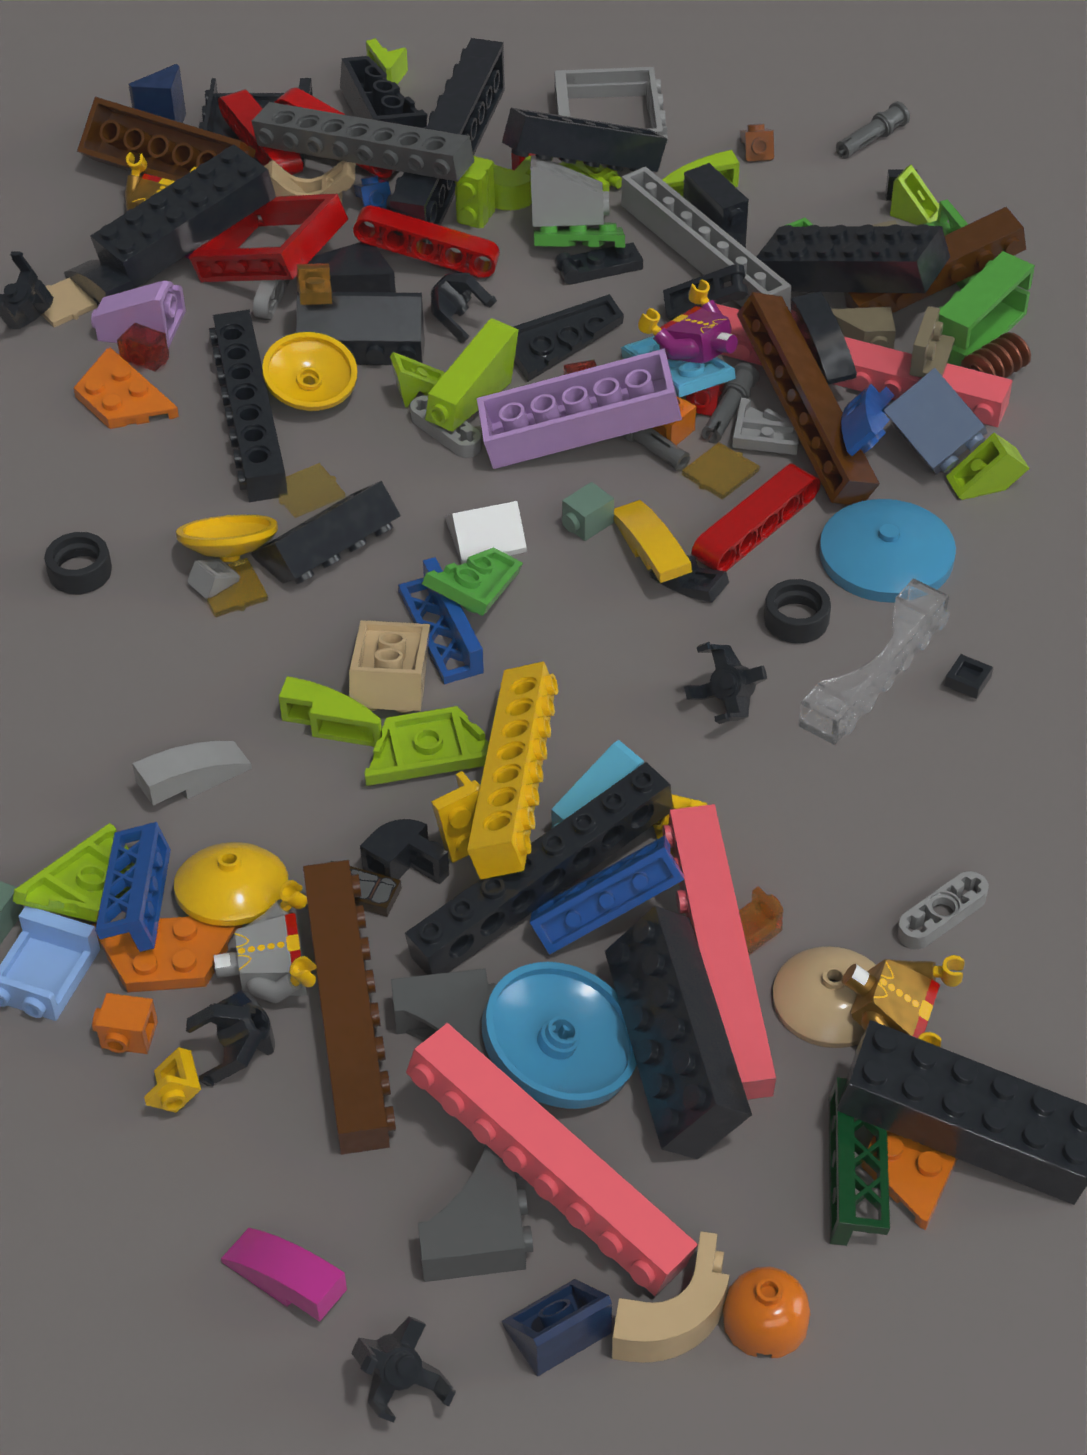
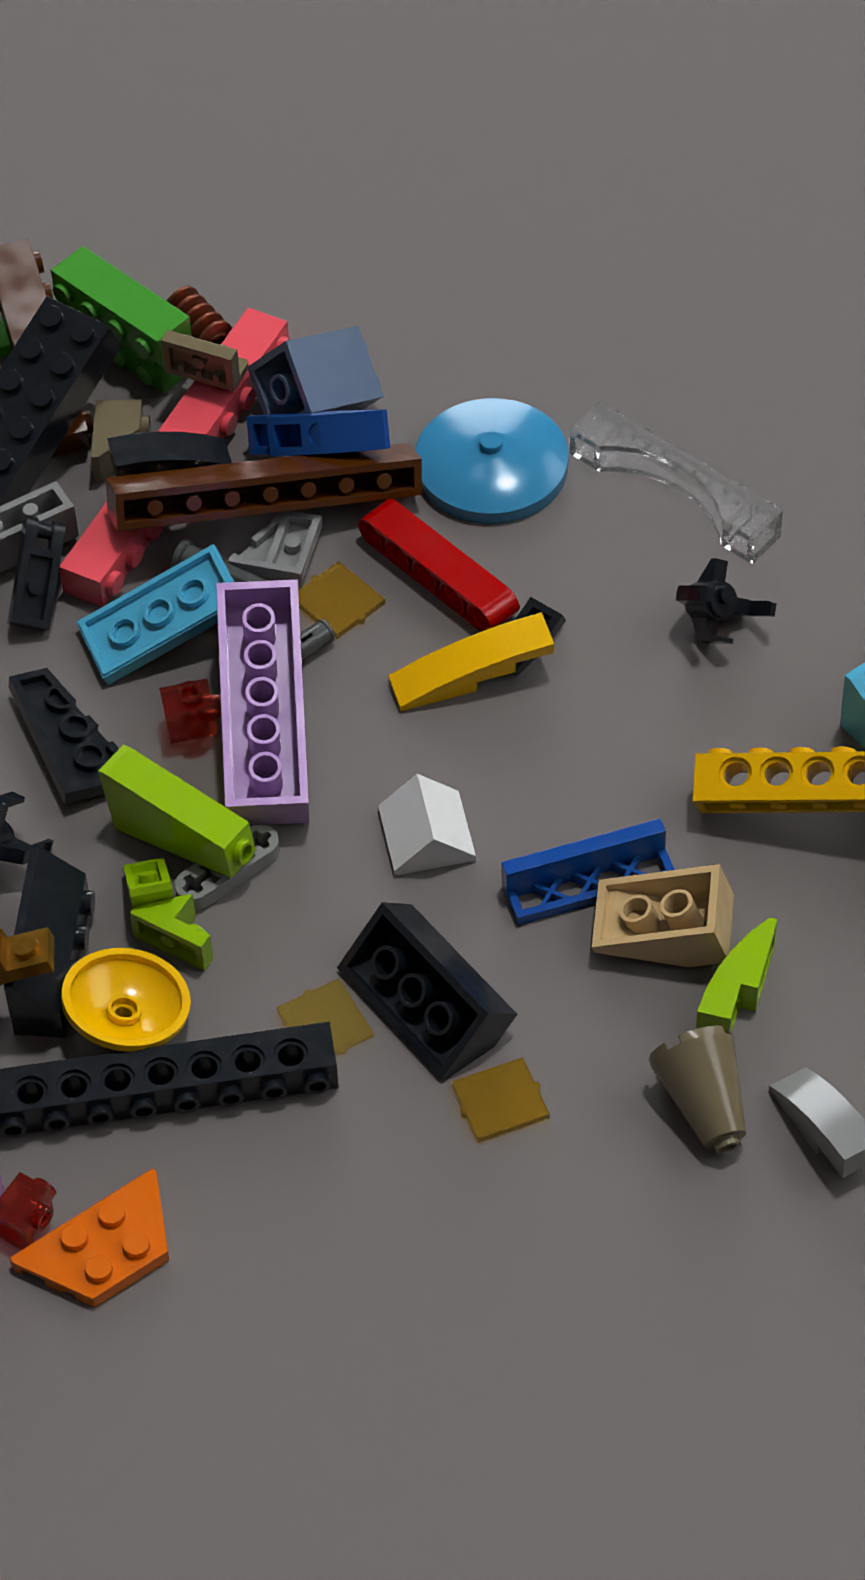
camera: 85 degrees left, 5 degrees up
(83, 579) = (456, 1235): black tyre -> none
(211, 577) = (493, 1113): light grey slope -> none
(218, 688) = (704, 1085): none -> dark tan cone
(227, 535) = (431, 1085): yellow dish -> none
(379, 397) = (170, 928): none -> lime slope
(426, 746) = (789, 883): lime wing -> none
(477, 581) = (539, 823): bright green wing -> none
(587, 511) = (413, 721): sand green brick -> none
(694, 335) = (138, 571): magenta torso -> none
(797, 592) = (592, 519): black tyre -> none
(968, 676) = (698, 410): black plate -> none
(987, 469) = (385, 354): lime slope -> none

